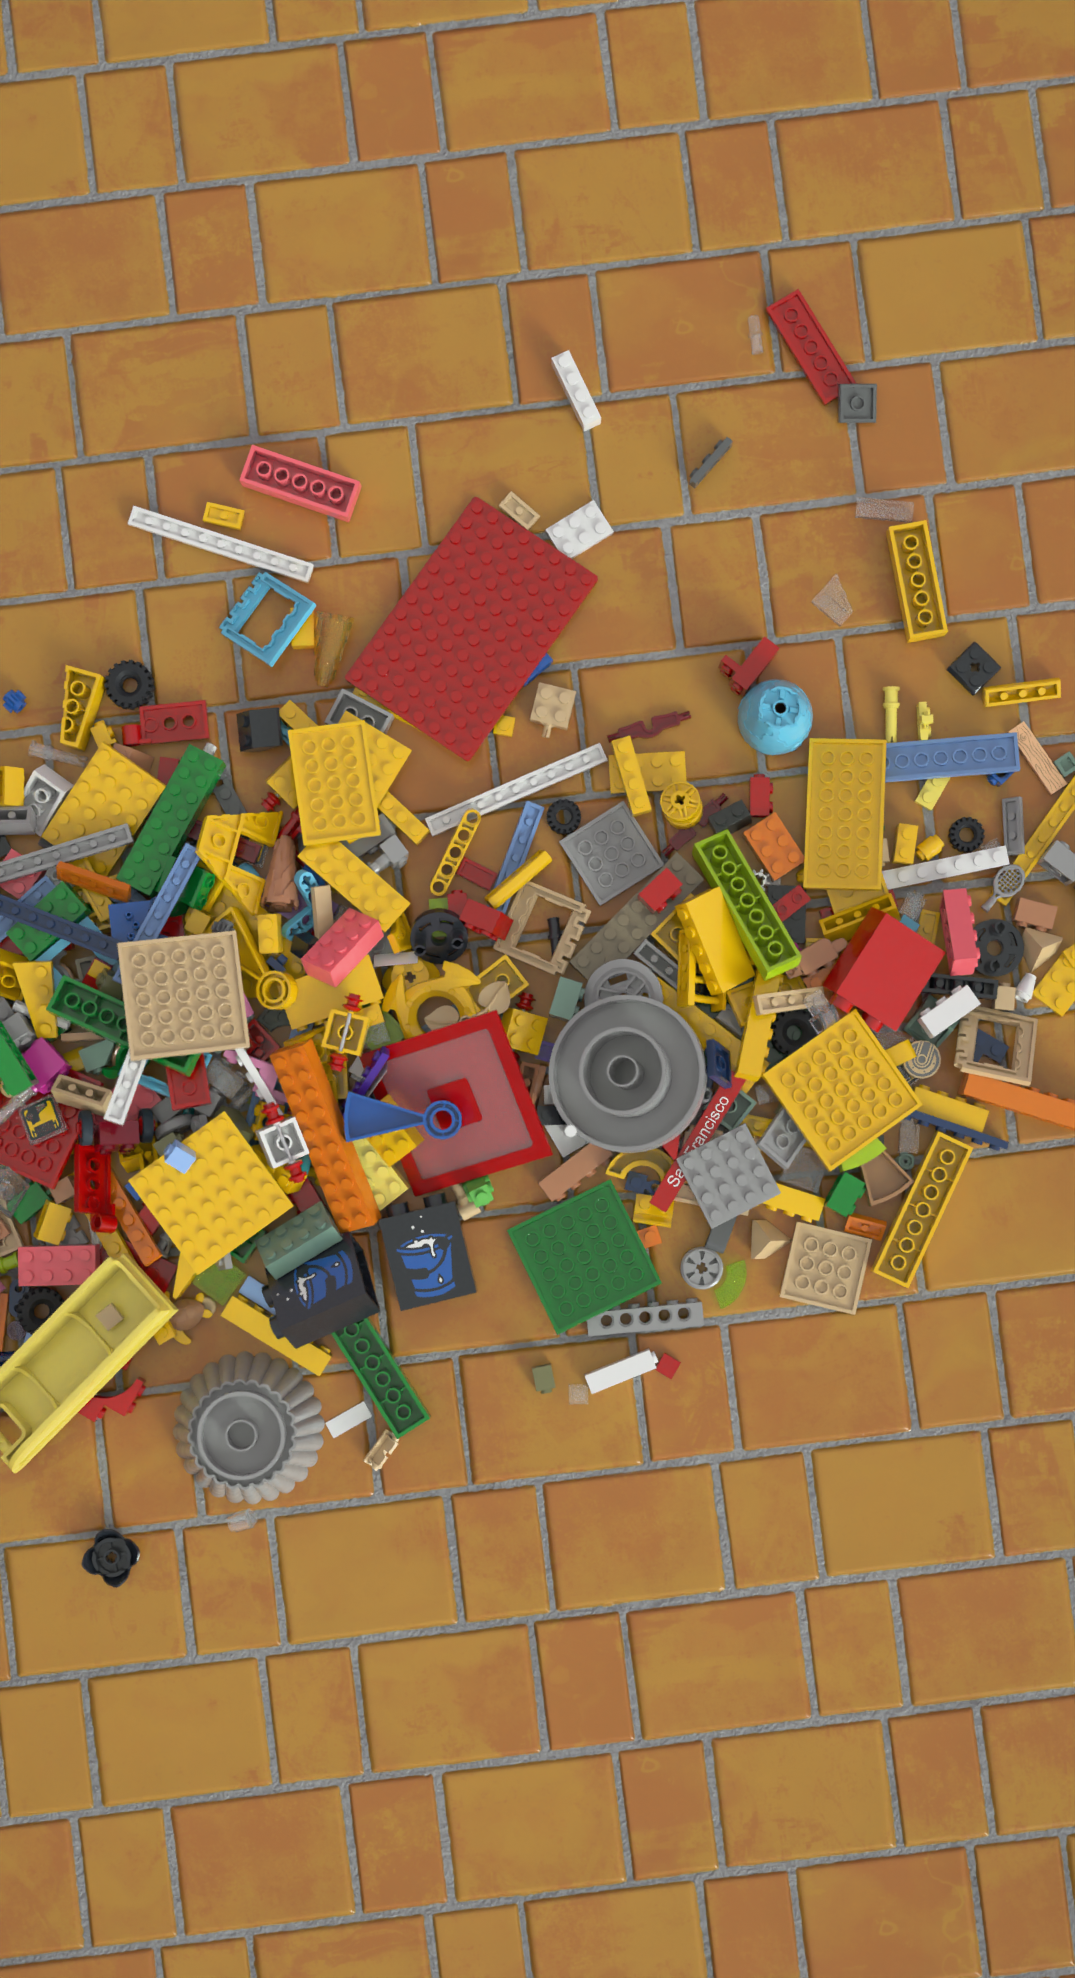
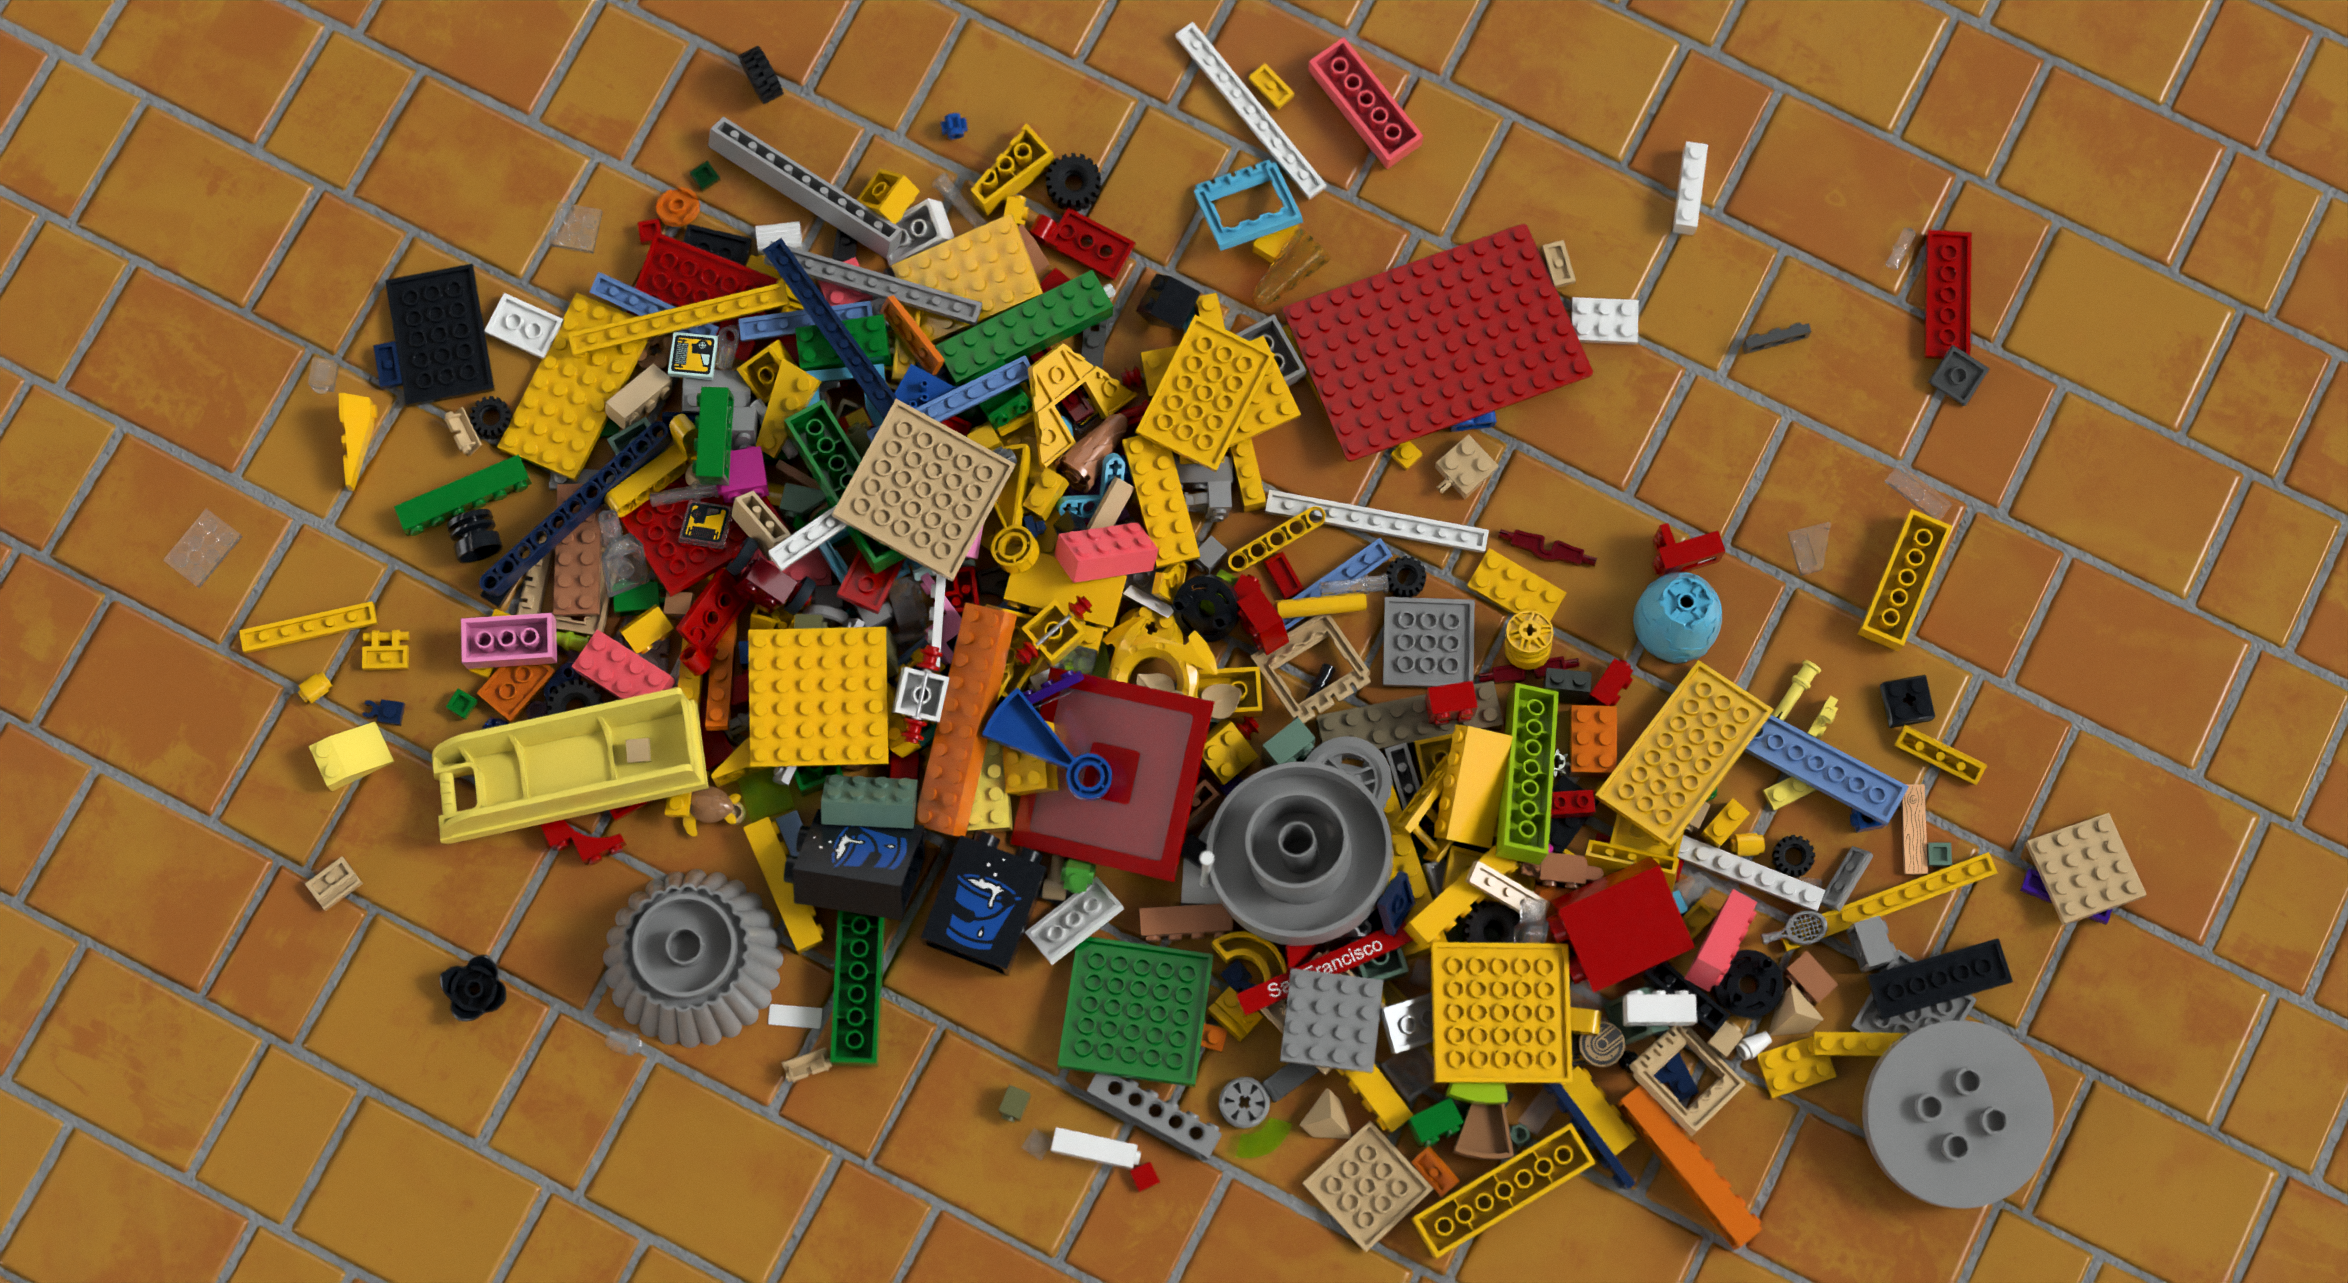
camera: 30 degrees right, 10 degrees down
(179, 1156) = (814, 636): light blue brick -> none
(414, 893) = (1210, 554): none -> light grey brick
(498, 1223) = (1074, 921): none -> white plate
(539, 842) = (1364, 585): none -> clear pin
(631, 776) = (1497, 579): yellow brick -> none
(947, 1058) = (1627, 1058): none -> black plate

